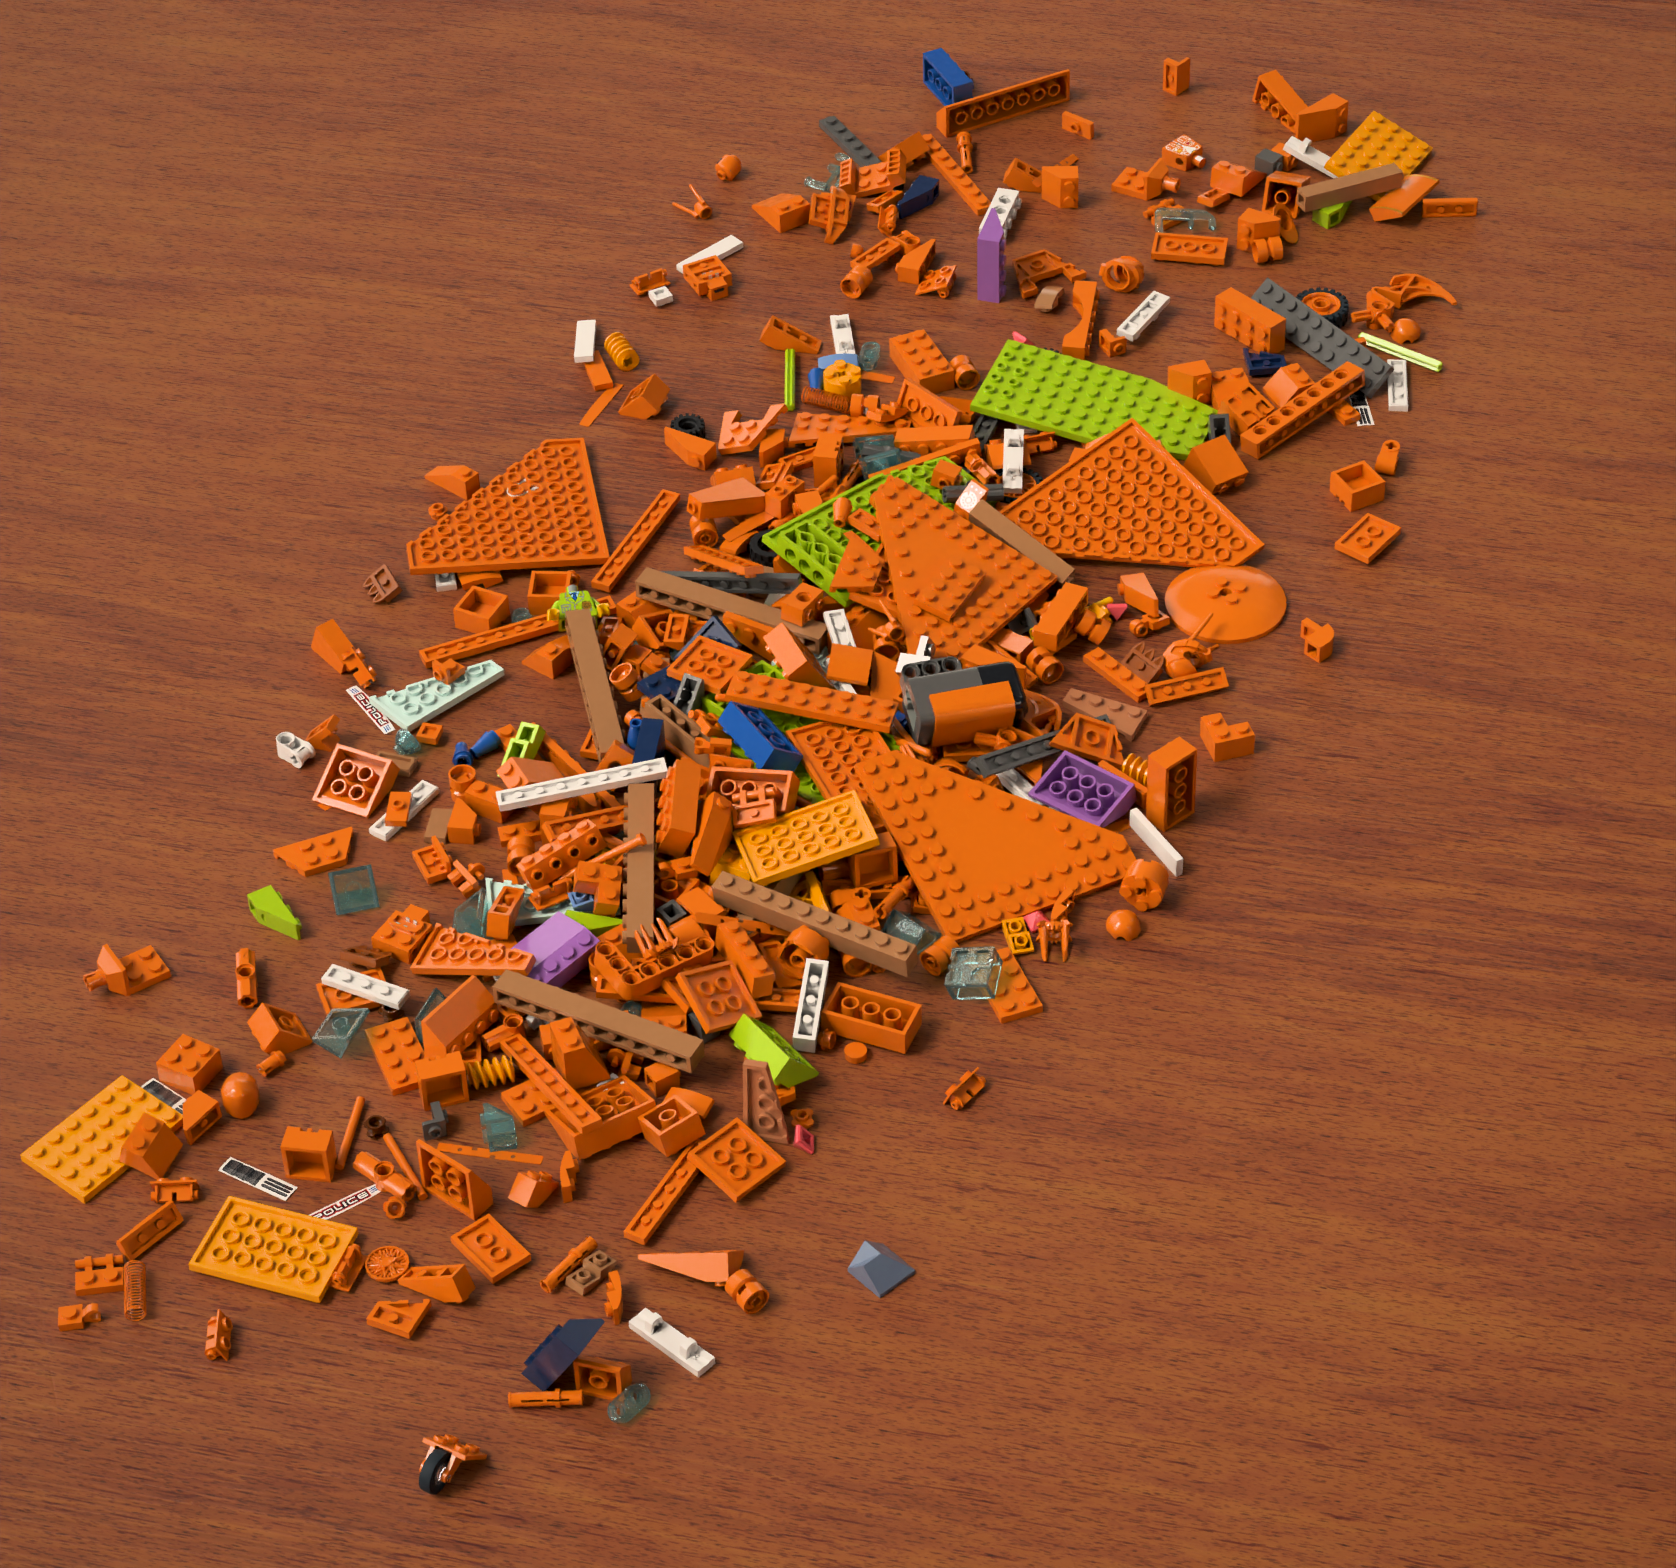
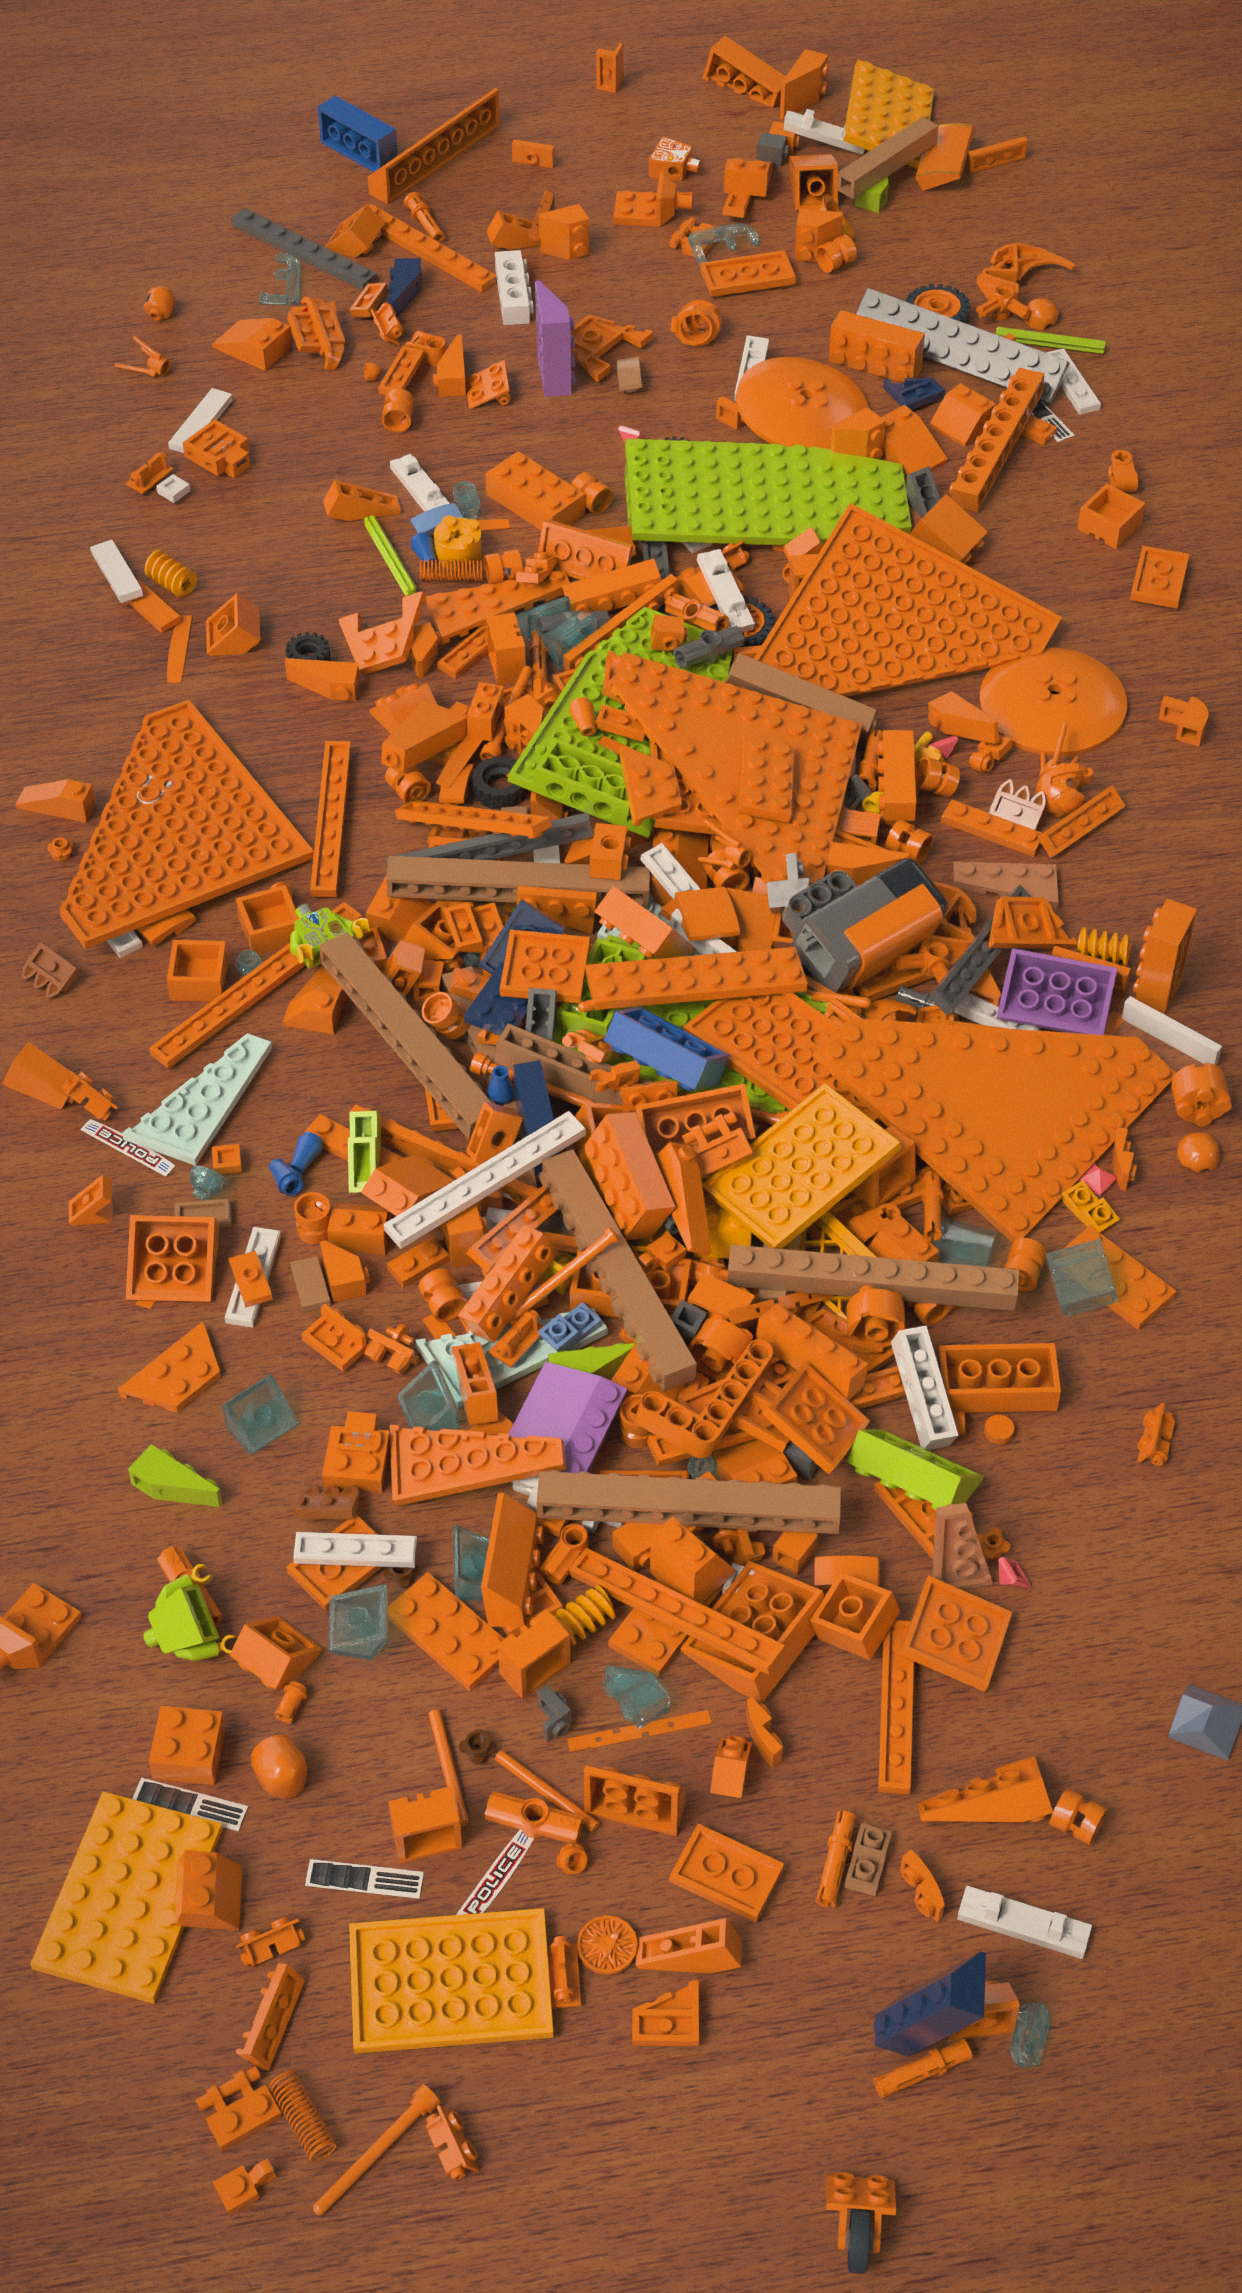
camera: 25 degrees left, 10 degrees up
(199, 1115) = (241, 1814): orange slope -> none
(209, 1310) = (423, 2102): none -> orange piece
(228, 991) = (183, 1620): none -> lime torso
(294, 749) = (67, 1236): white piece -> none
(448, 671) = (205, 1066): orange bracket -> none
(602, 882) = (588, 1307): orange brick -> none
(662, 947) = (710, 1381): orange piece -> none
(773, 474) = (450, 685): orange plate -> none
(875, 177) = (343, 273): orange plate -> none
(969, 498) = (721, 656): slope -> none
(1044, 936) = (1140, 1188): orange piece -> none
(1085, 301) = (671, 366): orange arch -> none
(1142, 350) = (775, 403): none -> orange dish
(1226, 741) = (1165, 877): orange brick -> none
(1245, 408) = (942, 453): orange piece -> none

